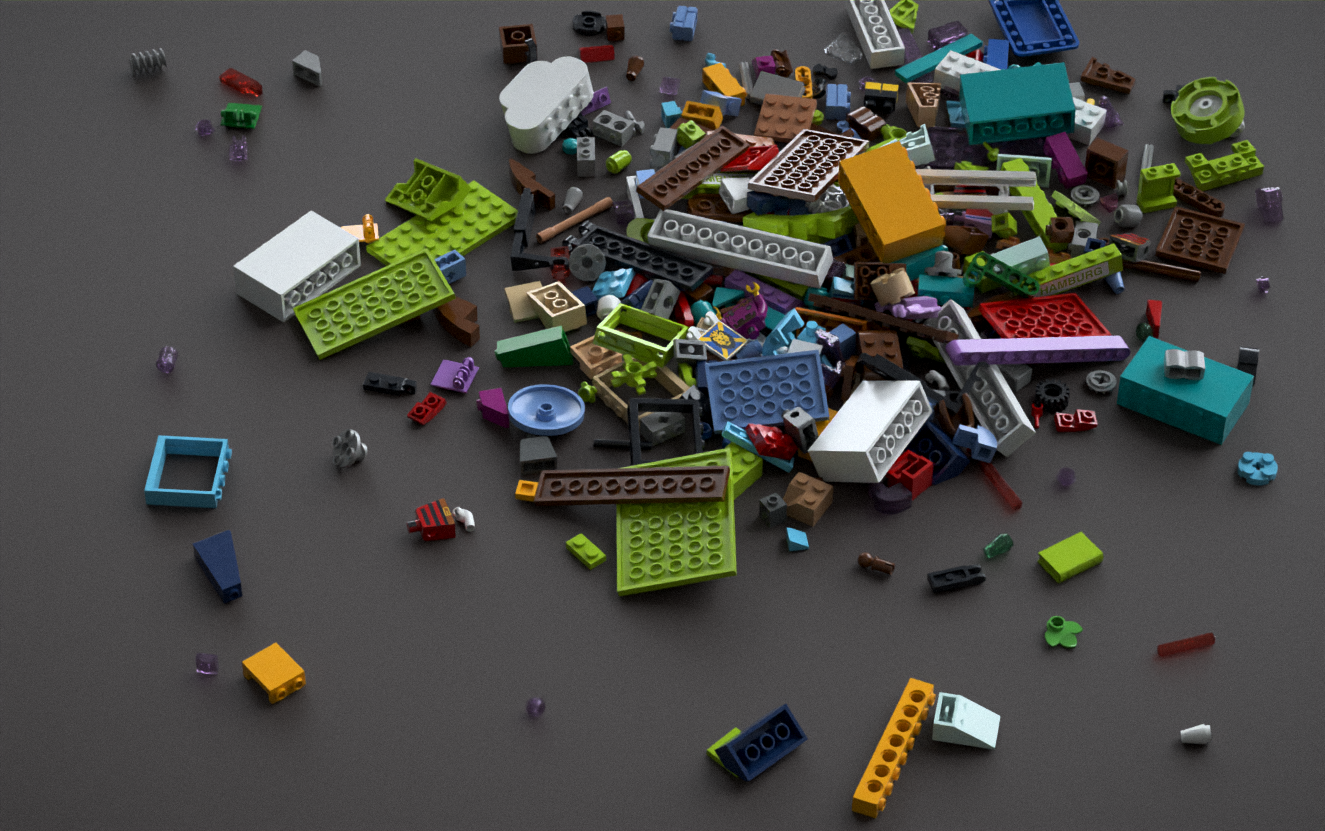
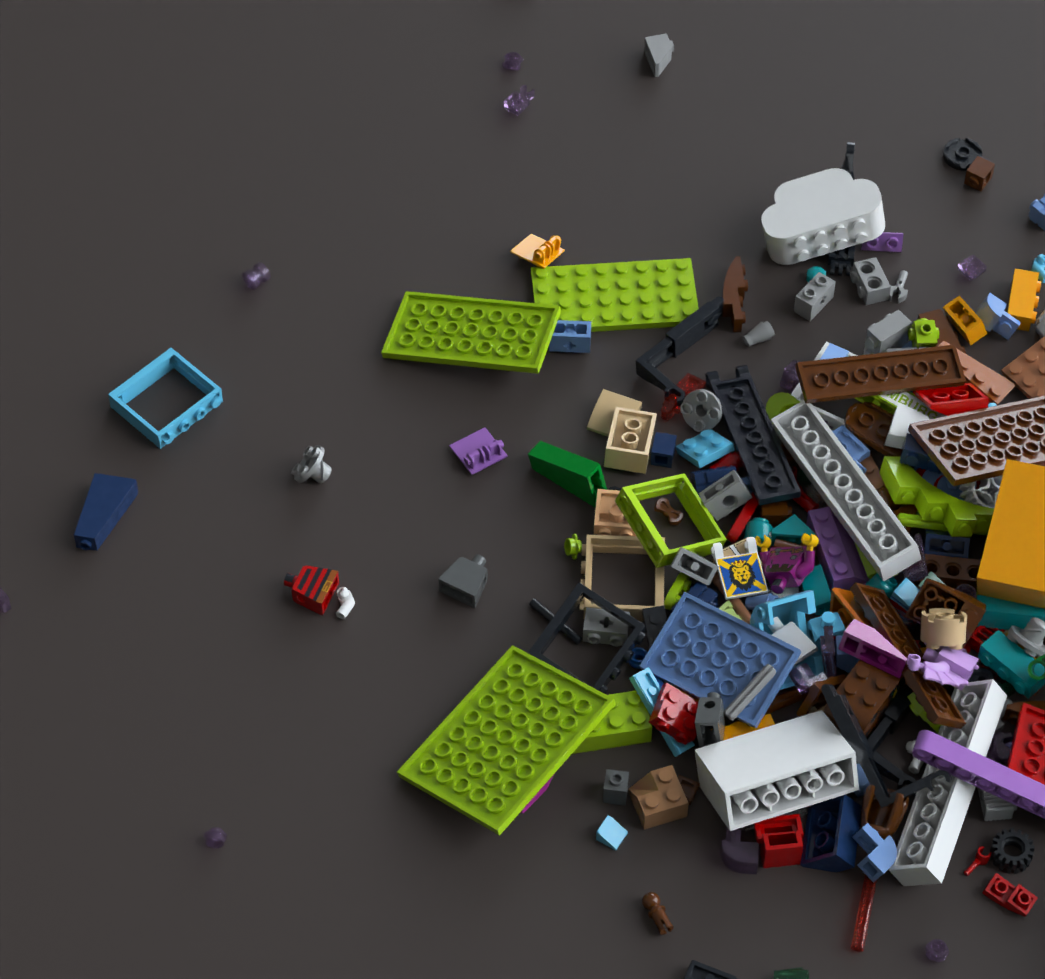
camera: 40 degrees right, 10 degrees up
(240, 115) = (554, 66): green hinge -> none
(241, 82) = (588, 32): clear red hinge -> none
(274, 672) = (40, 645): light orange panel -> none
(297, 265) = (446, 251): white brick -> none
(389, 384) = (415, 421): black hinge -> none
(428, 409) = (415, 470): red slope -> none
(429, 191) = (631, 247): lime piece -> none
(459, 320) = (536, 393): reddish brown slope -> none
(493, 406) = (478, 505): magenta slope -> none
(512, 42) = (870, 136): reddish brown brick -> none
(526, 490) = (422, 611): light orange plate -> none
(546, 410) = (515, 540): medium blue dish -> none
(550, 232) = (779, 357): nougat piece -> none
(585, 551) = (414, 710): lime plate -> none
(596, 53) = (938, 191): red slope -> none
(606, 306) = (677, 466): white head -> none
(618, 161) = (841, 320): lime brick -> none
(632, 486) = (503, 676): reddish brown plate -> none
(634, 67) = (957, 227): reddish brown cone -> none
(634, 374) = (623, 550): lime pin -> none
(670, 113) = (940, 297): medium azure brick -> none
(809, 391) = (750, 692): none -> light grey axle
(863, 322) = (872, 648): none -> magenta slope

